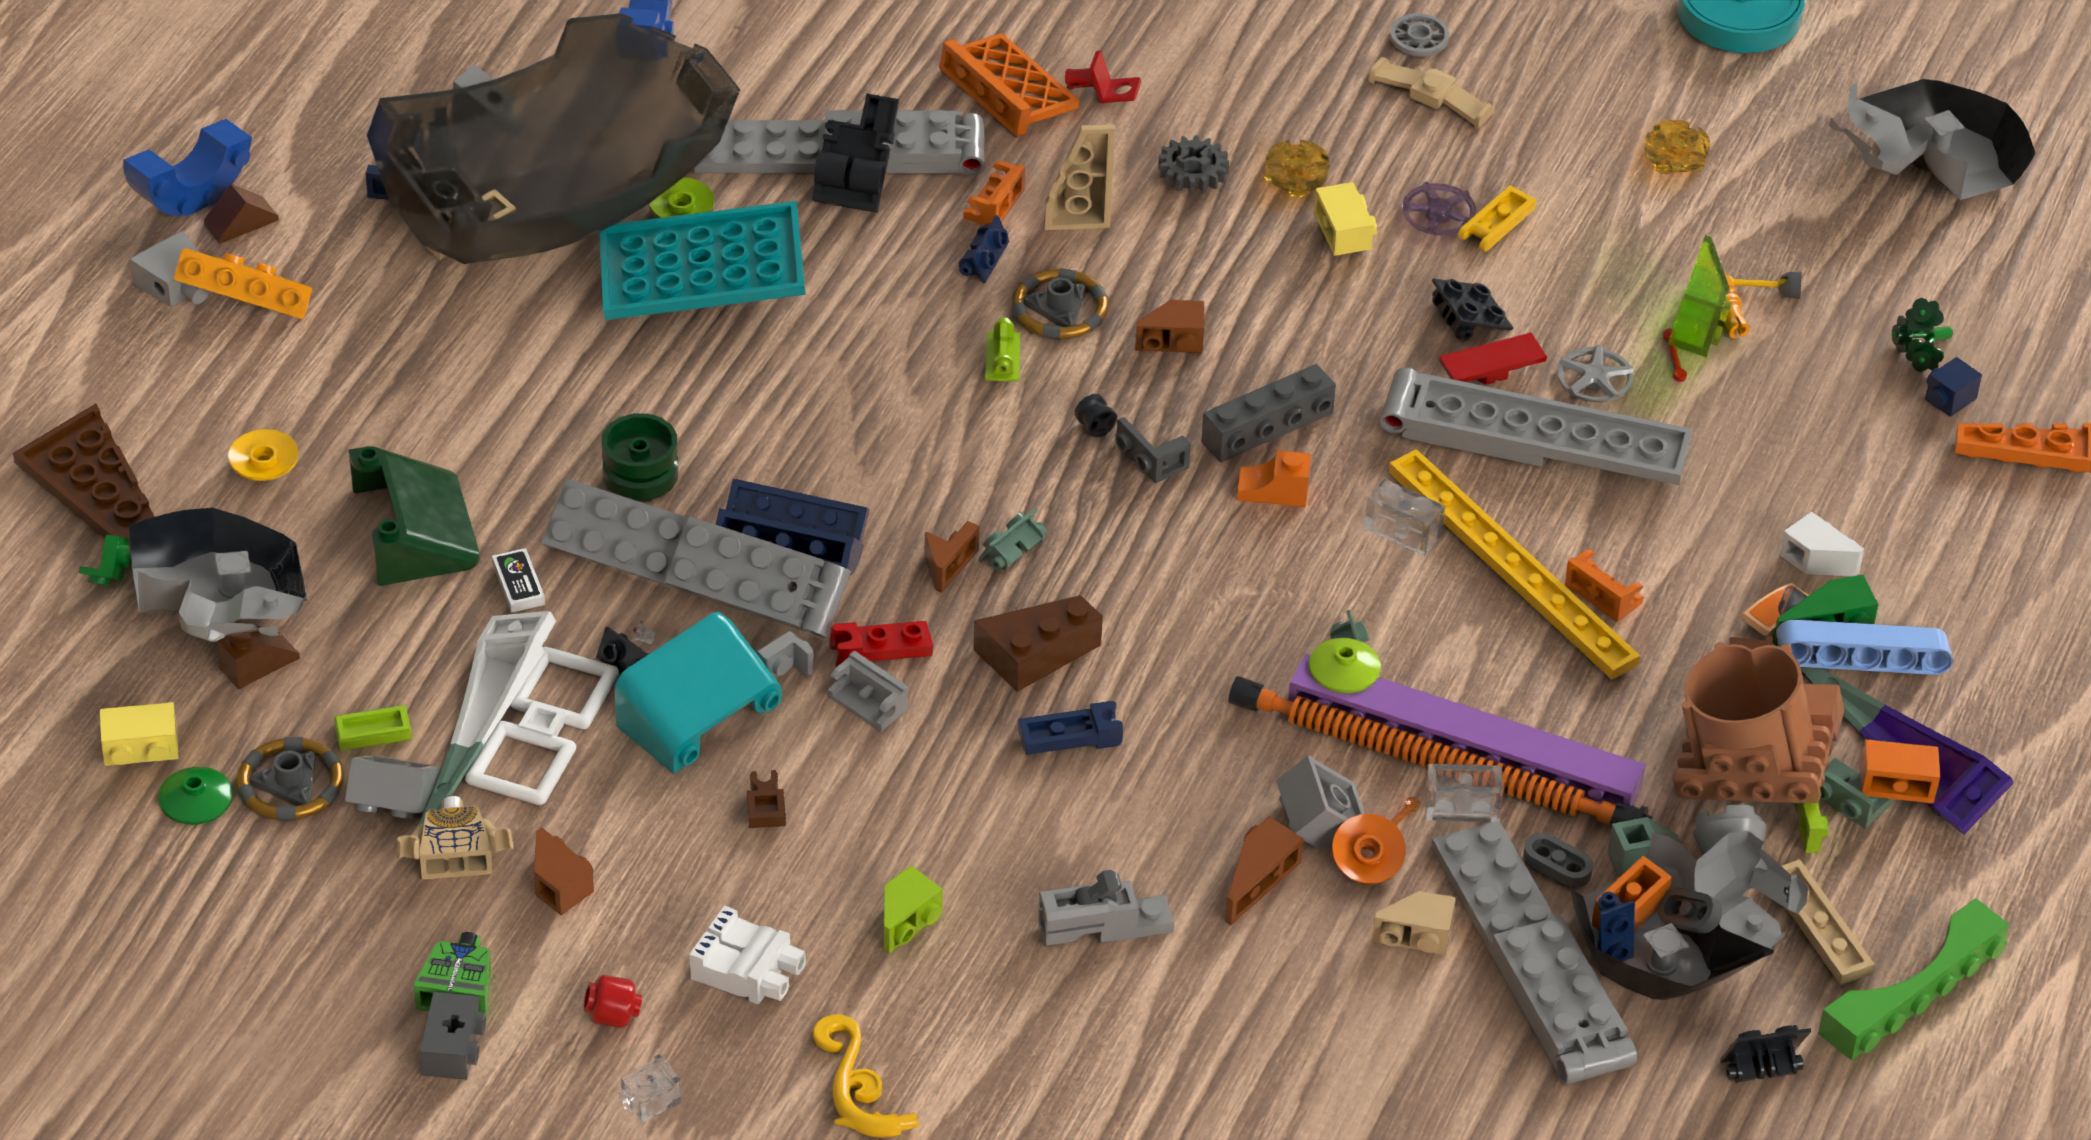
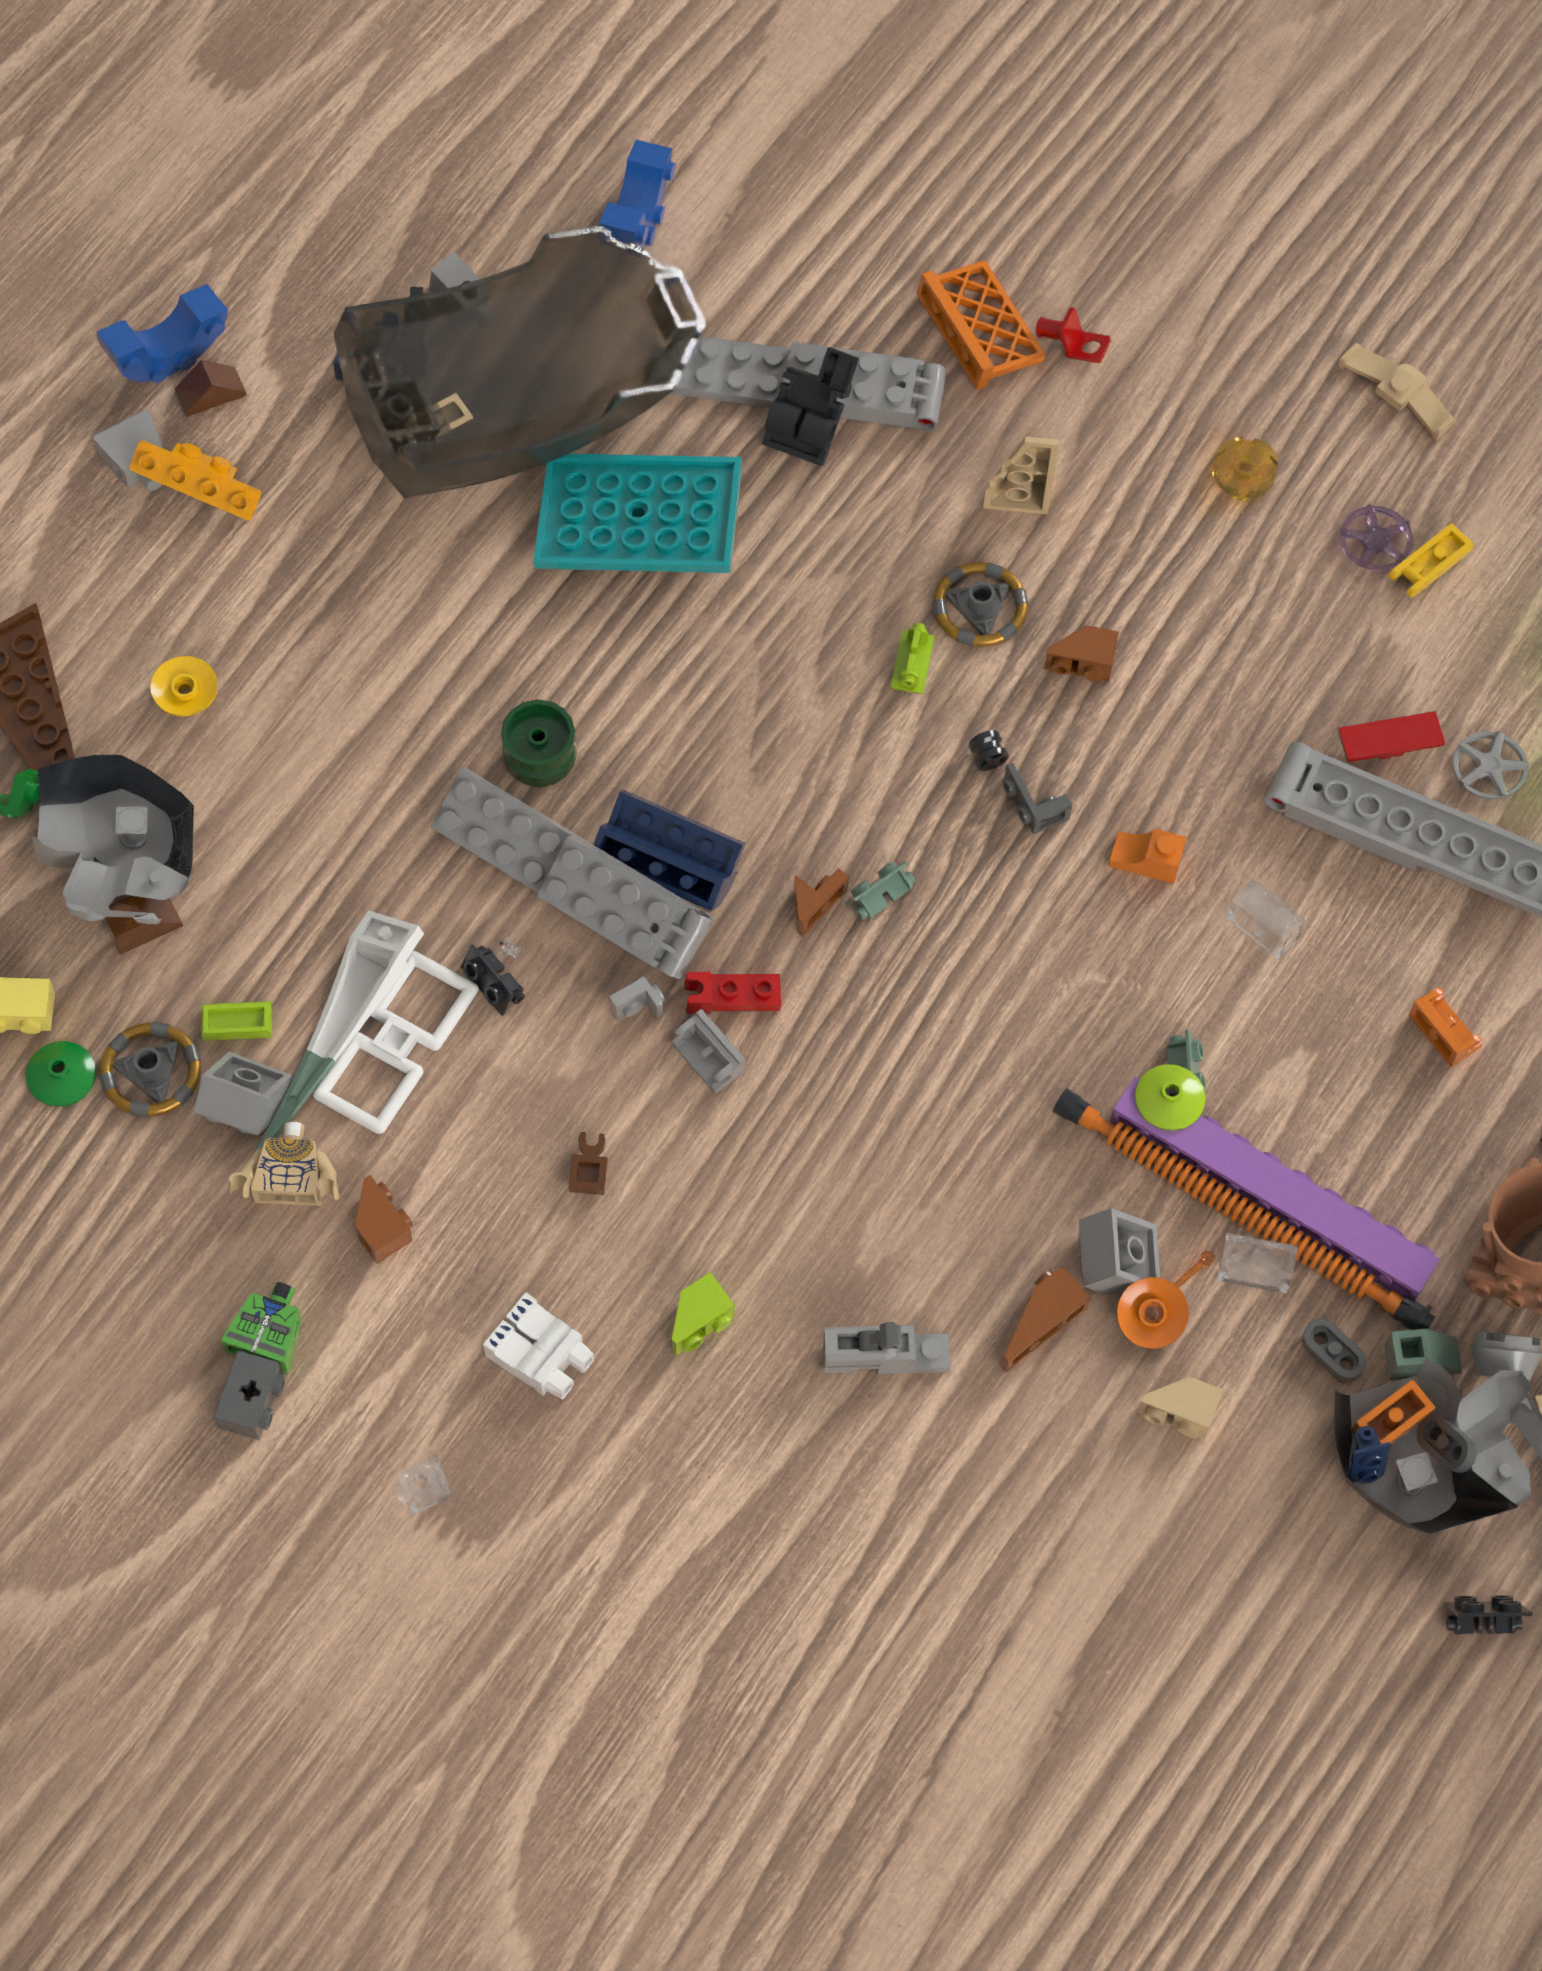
camera: 10 degrees right, 20 degrees up
(431, 517) = (326, 781): dark green windscreen -> none
(518, 580) = (401, 866): tile -> none
(612, 1001) = (404, 1379): red head -> none
(683, 198) = (650, 432): lime dish -> none
(690, 689) = (542, 1032): teal windscreen -> none
(865, 1079) = (607, 1498): yellow plant -> none
(985, 250) = (925, 522): dark blue hinge -> none
(997, 195) = (942, 464): orange hinge -> none
(1037, 639) = (882, 1015): reddish brown wedge -> none
(1072, 729) = (894, 1124): dark blue plate -> none
(1193, 164) = (1142, 453): dark grey gear -> none
(1268, 412) = (1157, 772): dark grey brick -> none
(1344, 218) = (1278, 543): light yellow brick -> none
(1419, 35) = (1400, 316): light grey wheel -> none
(1467, 306) = (1382, 666): black hinge -> none
(1517, 566) = (1363, 989): yellow plate -> none
(1535, 954) = (1289, 1455): light grey hinge -> none

